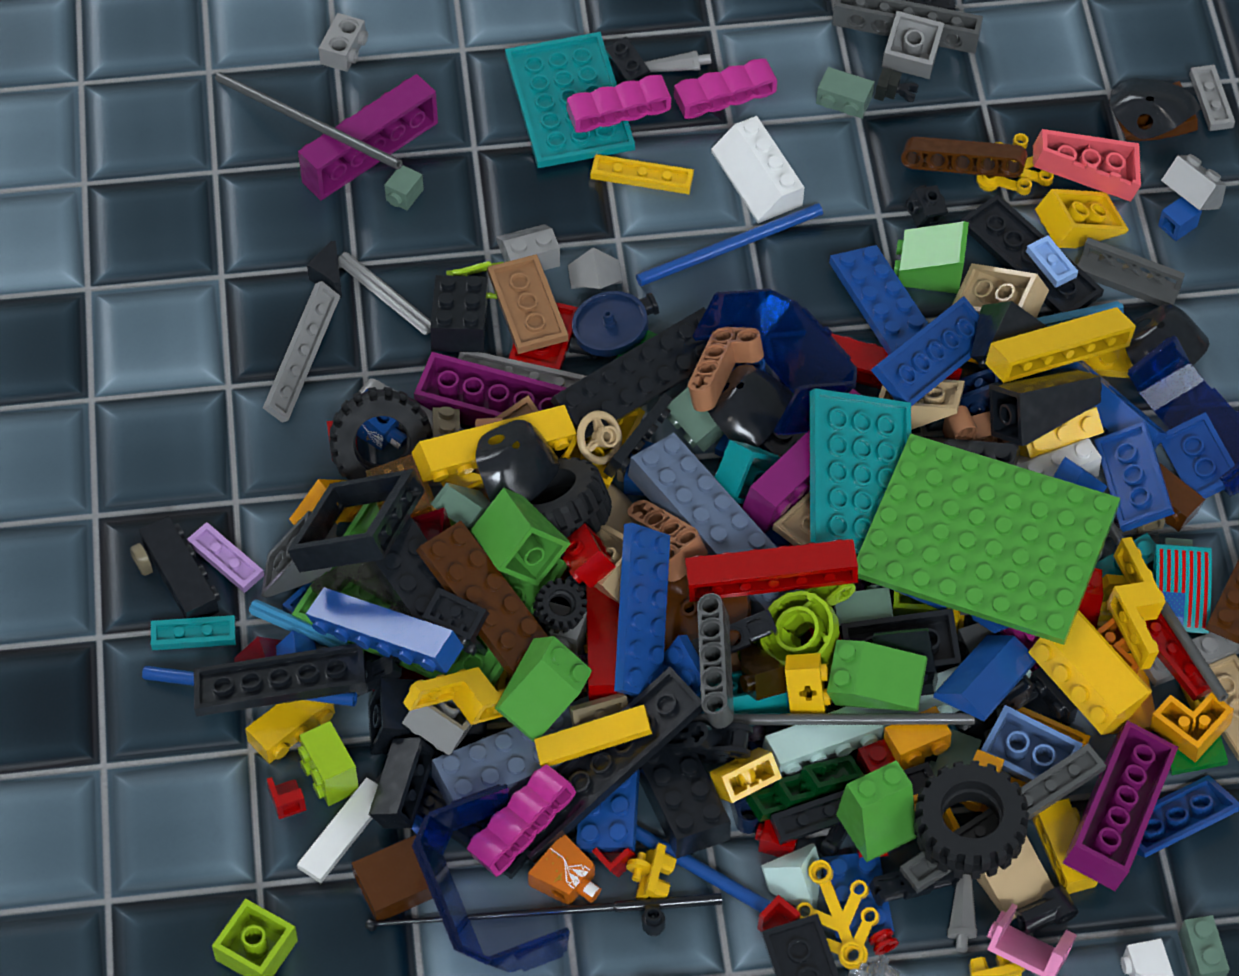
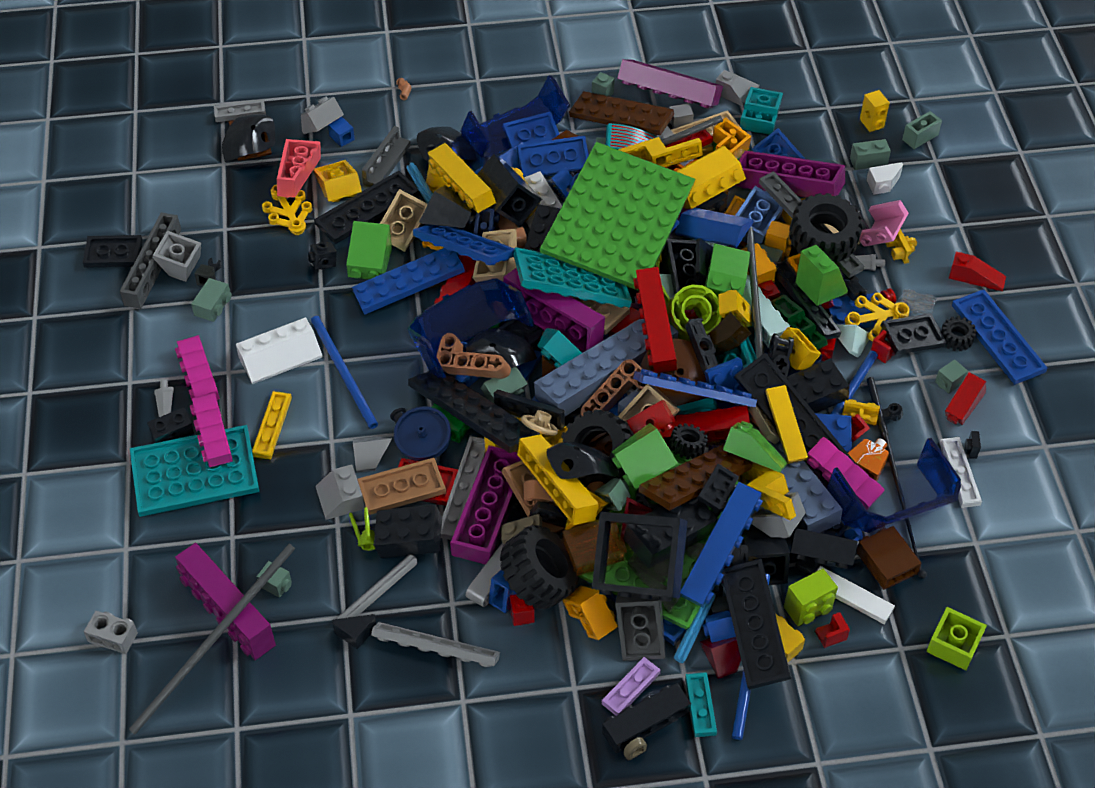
camera: 90 degrees left, 5 degrees down
(719, 670) = (738, 341): dark grey beam -> none
(976, 155) = (282, 232): reddish brown beam -> none
(1052, 261) = (378, 190): light blue plate -> none

